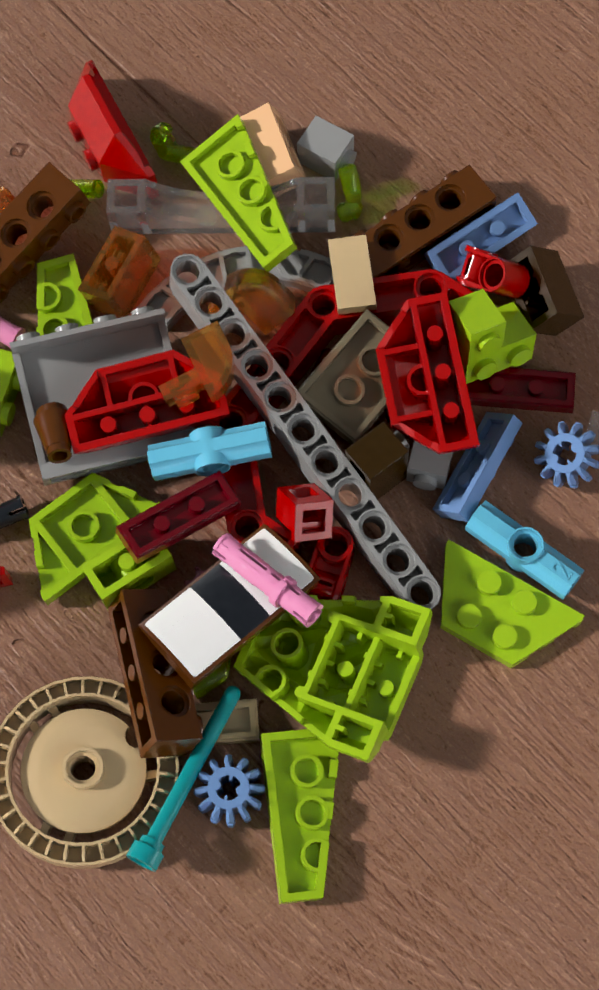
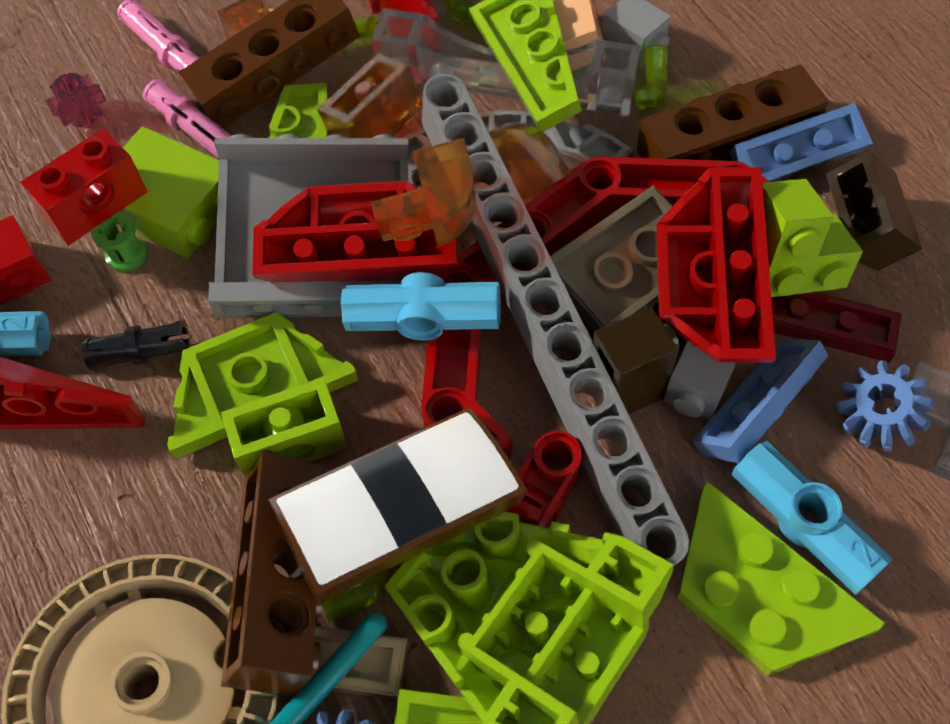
camera: 10 degrees right, 10 degrees down
(53, 431) = (236, 248): reddish brown cone -> none
(178, 517) = (359, 376): dark red tile -> none
(279, 588) = (467, 489): bright pink pin -> none
(305, 511) = (526, 403): red brick -> none
(352, 274) = (641, 148): tan tile -> none
(493, 273) = (824, 170): red piece -> none

